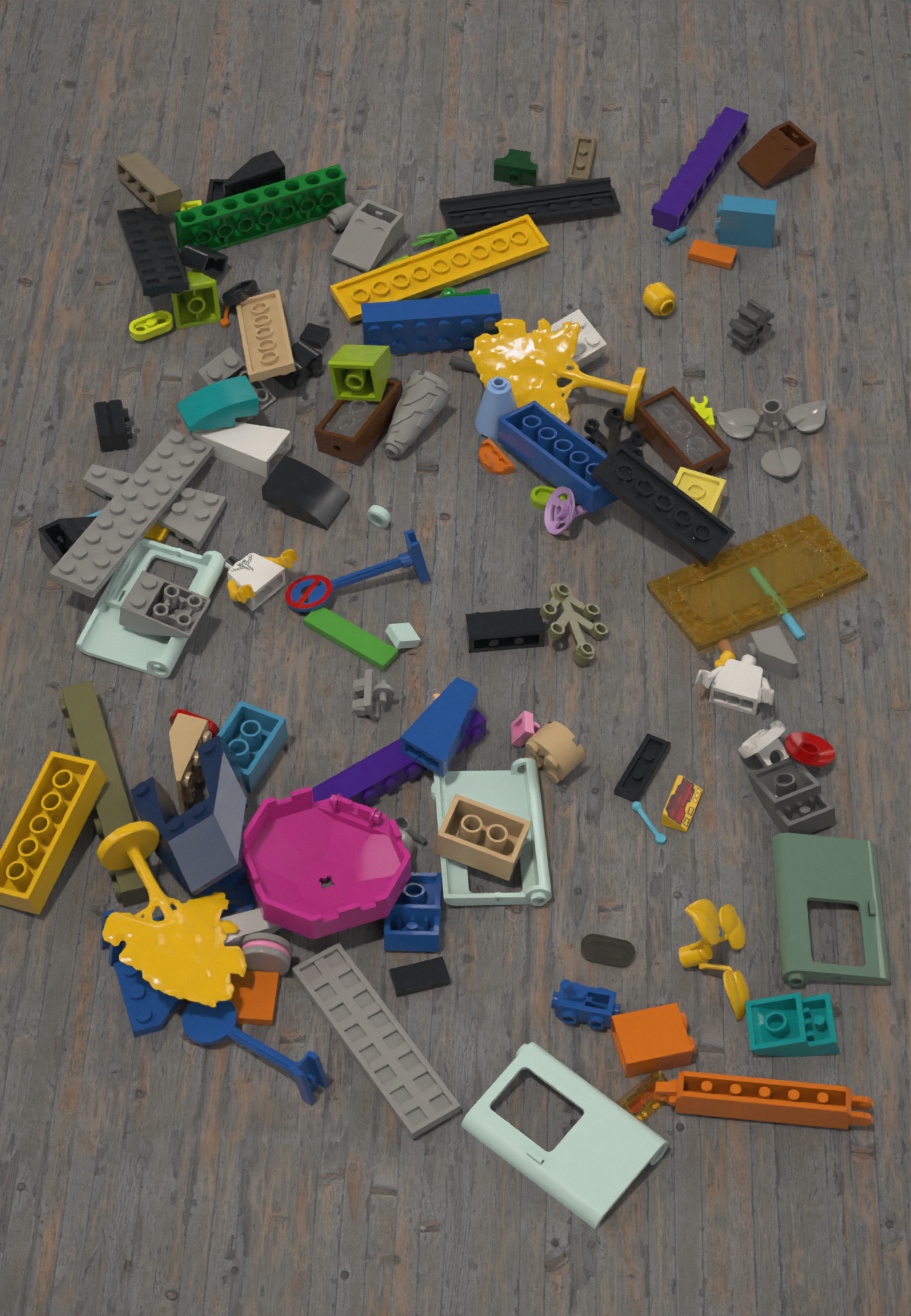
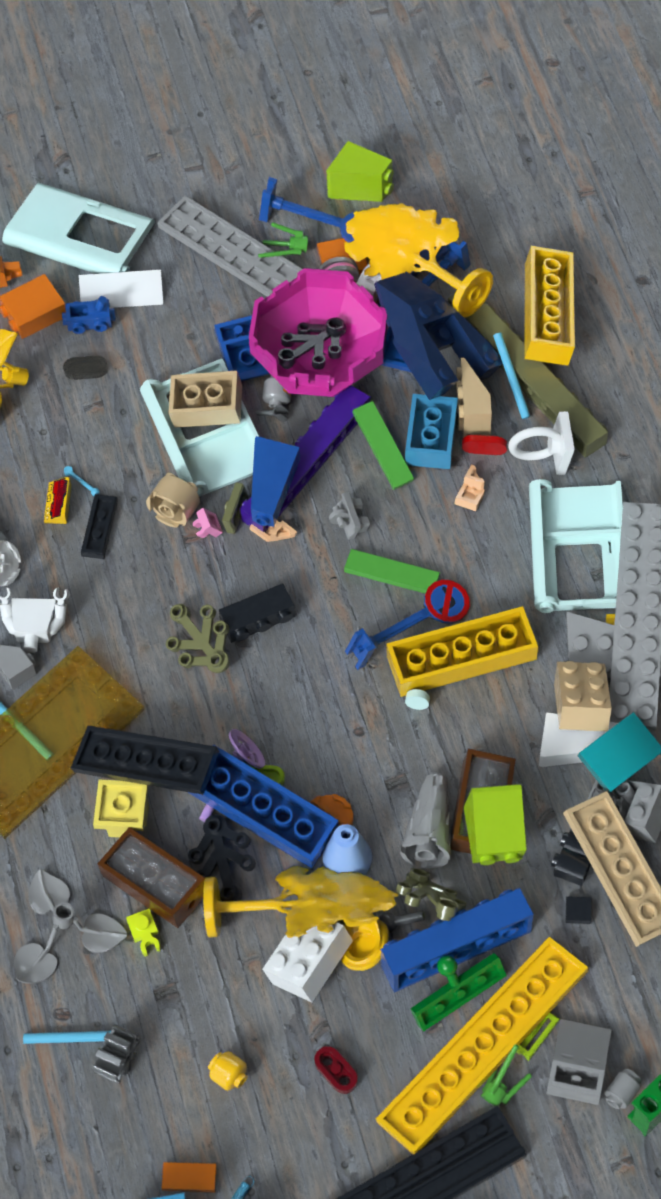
camera: 165 degrees right, 10 degrees up
(117, 690) = (559, 443): none -> white tile
(128, 777) = (509, 369): none -> medium azure bar
(162, 608) = (559, 522): light grey slope -> none
(181, 1077) = (359, 175): none -> lime slope
(227, 458) = (582, 696): none -> tan brick
(231, 691) = (471, 490): none -> light nougat slope
(257, 577) = (500, 591): white torso -> none
(297, 1022) = (297, 243): none -> bright green plant
(304, 493) = (496, 702): black slope -> none
(304, 750) = (383, 445): none -> bright green tile
(319, 534) = (462, 651): none -> yellow brick
(333, 867) = (333, 328): none -> black plant
(402, 635) = (345, 583): light aqua tile -> none
(419, 976) = (221, 307): black tile -> none
(440, 354) = (441, 897): none -> olive plant
(490, 736) = (232, 508): none -> olive plate
(535, 1031) = (123, 288): none -> white sticker
(568, 283) = (337, 1070): none -> dark red plate
(640, 1099) = (32, 268): clear yellow slope -> none
(726, 653) = (51, 645): arm -> none
(783, 360) = (64, 1037): none -> medium azure bar

